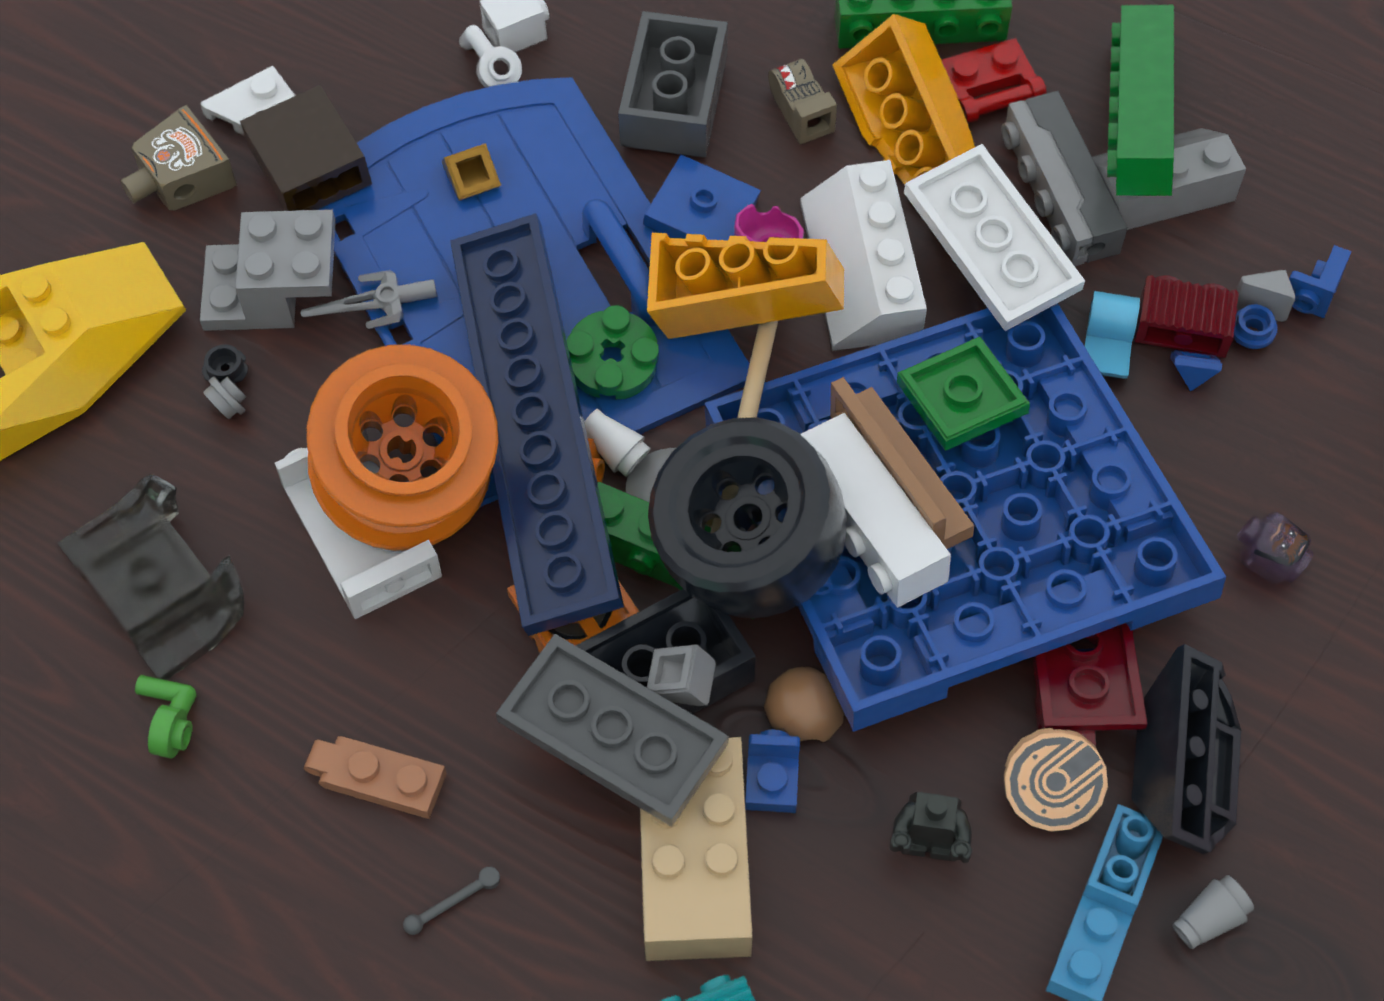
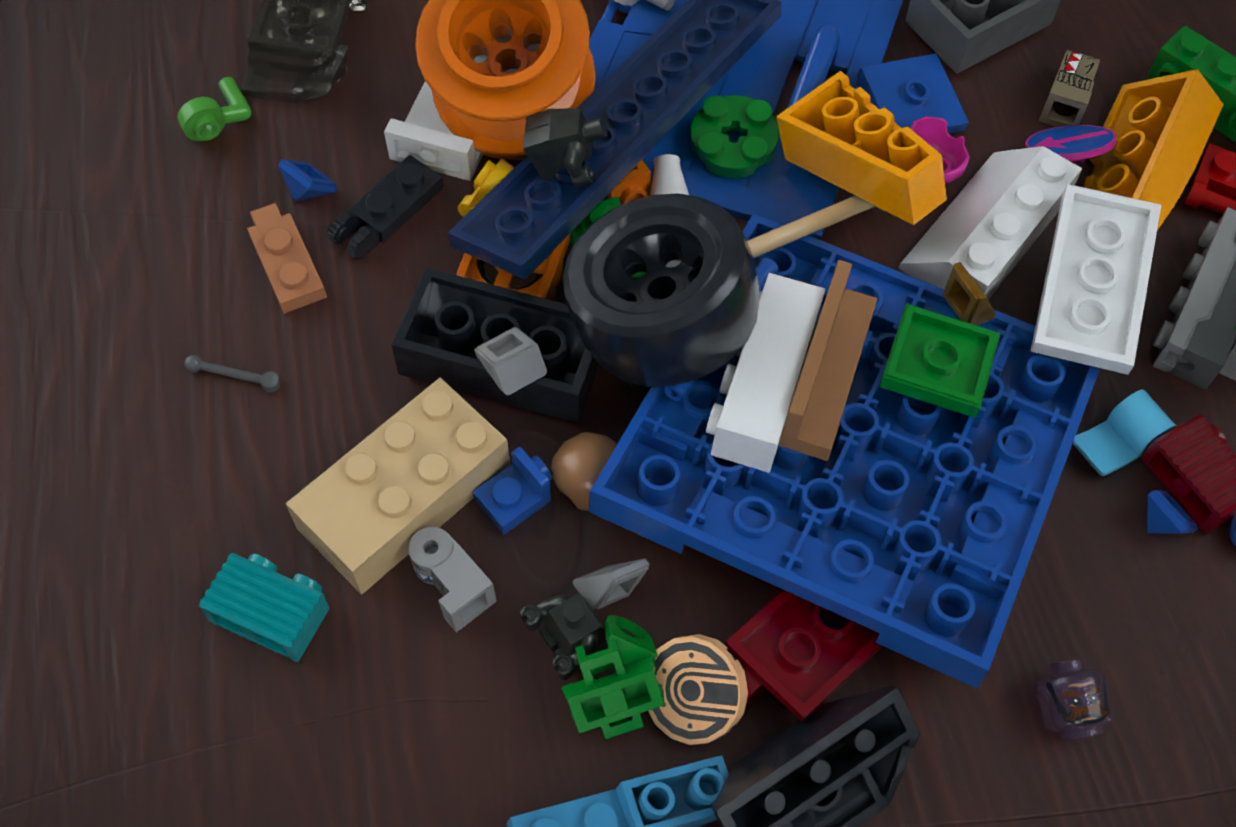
camera: 45 degrees right, 0 degrees up
(318, 698) = (305, 180): none -> blue slope
(407, 654) = (386, 207): none -> black hinge
(483, 569) = (486, 180): none -> yellow plate
(535, 475) = (562, 141): none -> pearl dark grey piece
(613, 729) = (422, 349): dark grey plate -> none
(802, 872) = (446, 565): none -> light grey leg
(851, 142) = (1074, 141): none -> piece
(913, 765) = (610, 582): none -> light grey slope
(926, 330) = (967, 297): none -> pearl gold slope
(1022, 818) = (604, 698): none -> green piece

